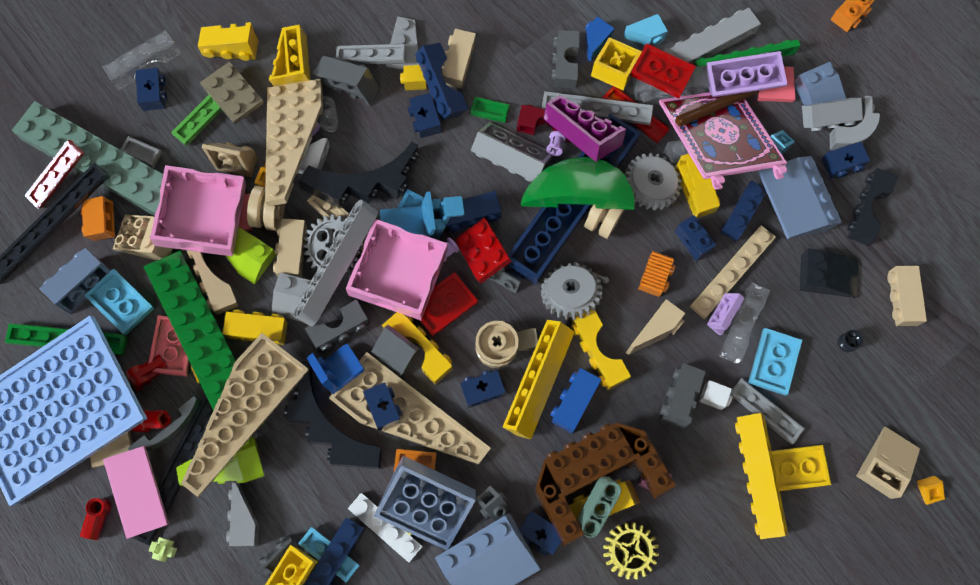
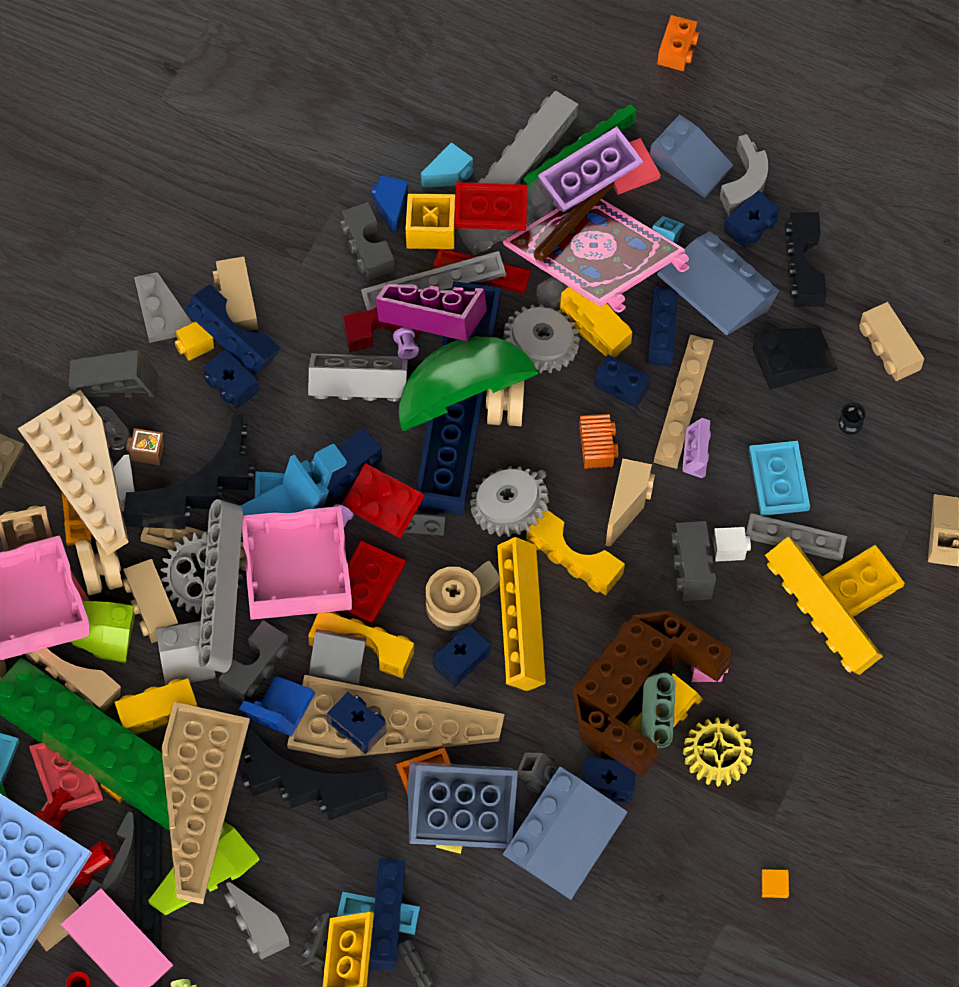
camera: 25 degrees left, 10 degrees down
(292, 57) = (32, 381): yellow wedge -> none
(344, 138) = (146, 446): none -> medium nougat brick
(372, 53) = (128, 333): light grey tile -> none
(393, 536) = (427, 857): white plate -> none
(490, 109) = (304, 339): green tile -> none
(575, 400) = (574, 620): blue brick -> none
(744, 320) = (723, 450): clear arch -> none
(832, 113) = (710, 173): light grey brick -> none

